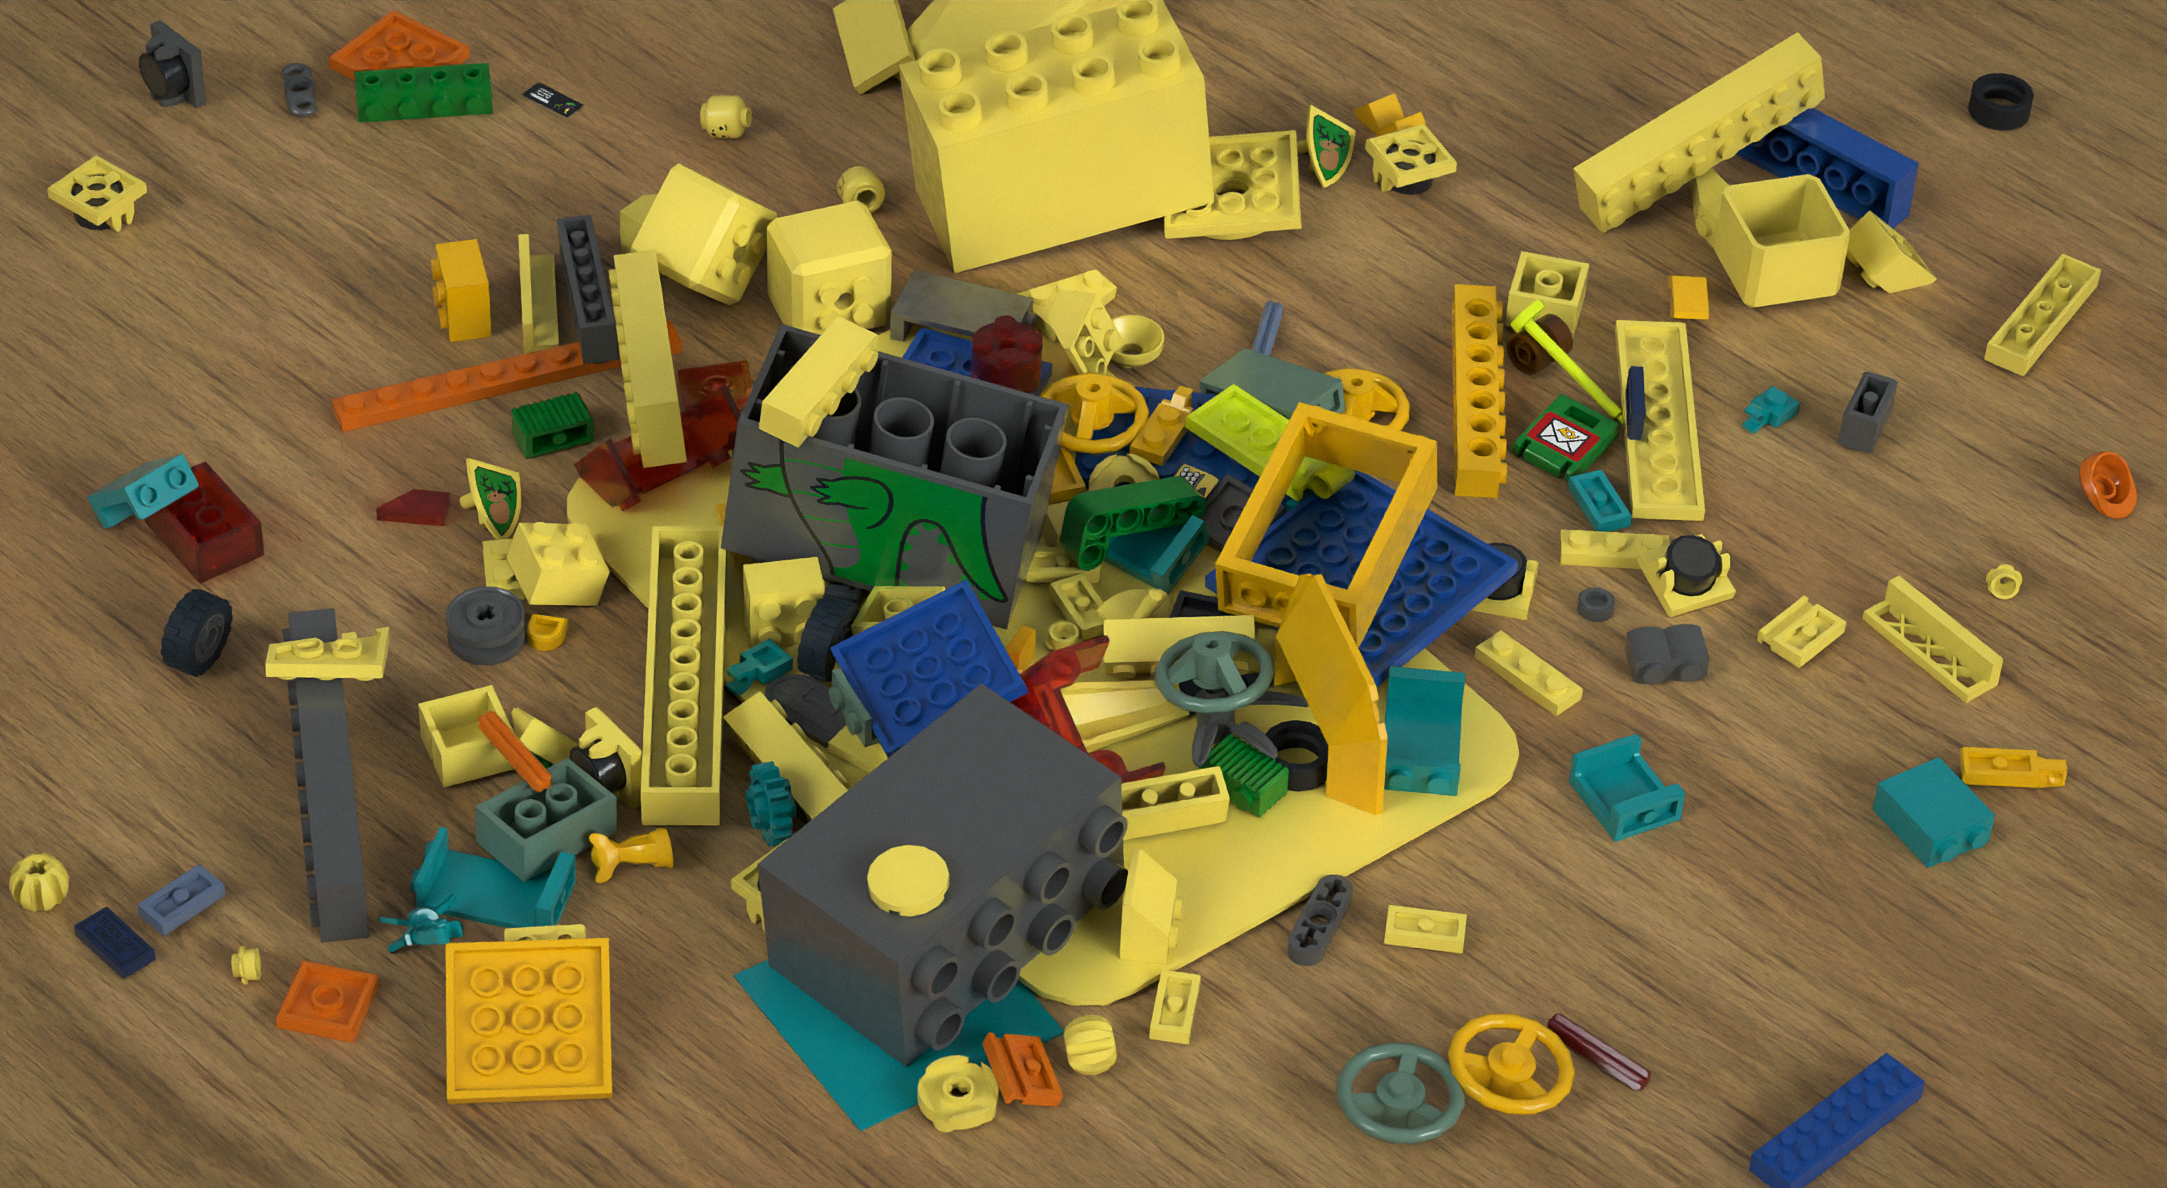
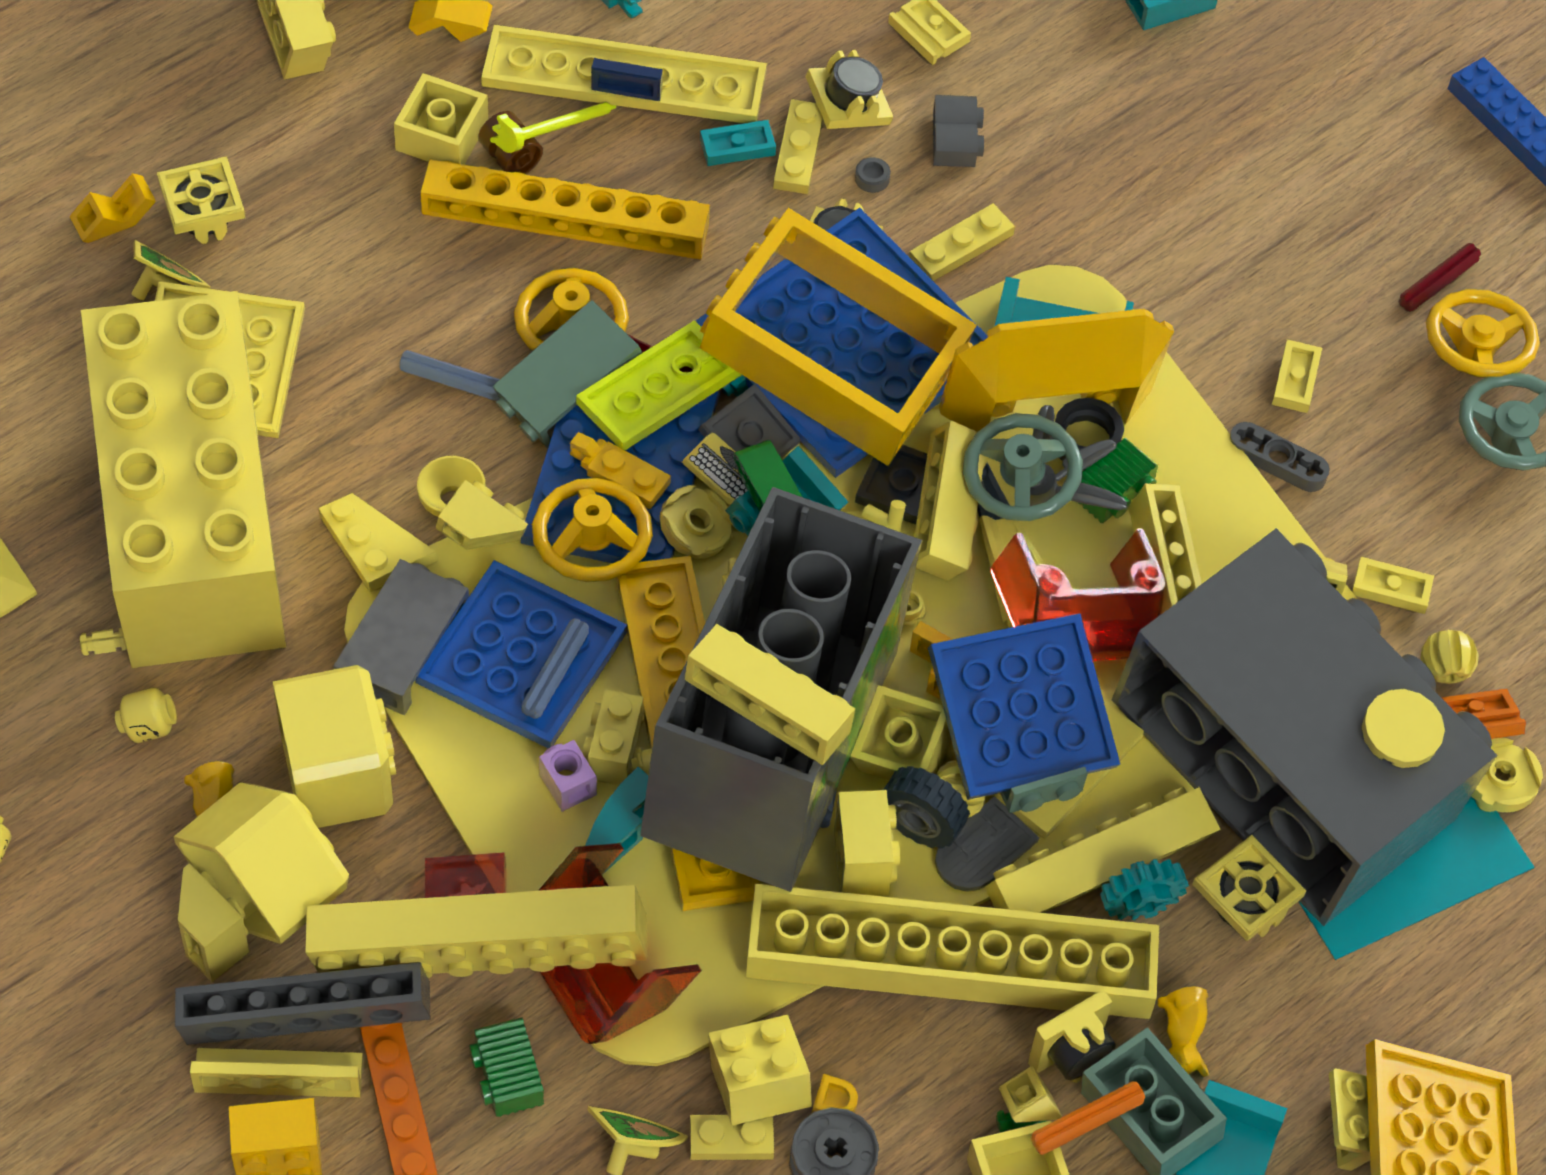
camera: 85 degrees left, 15 degrees up
(760, 662) = (927, 880): teal plate -> none
(1008, 354) = (508, 591): clear red brick -> none
(1561, 441) = (647, 155): green container -> none
(1624, 789) = (1127, 196): teal panel -> none

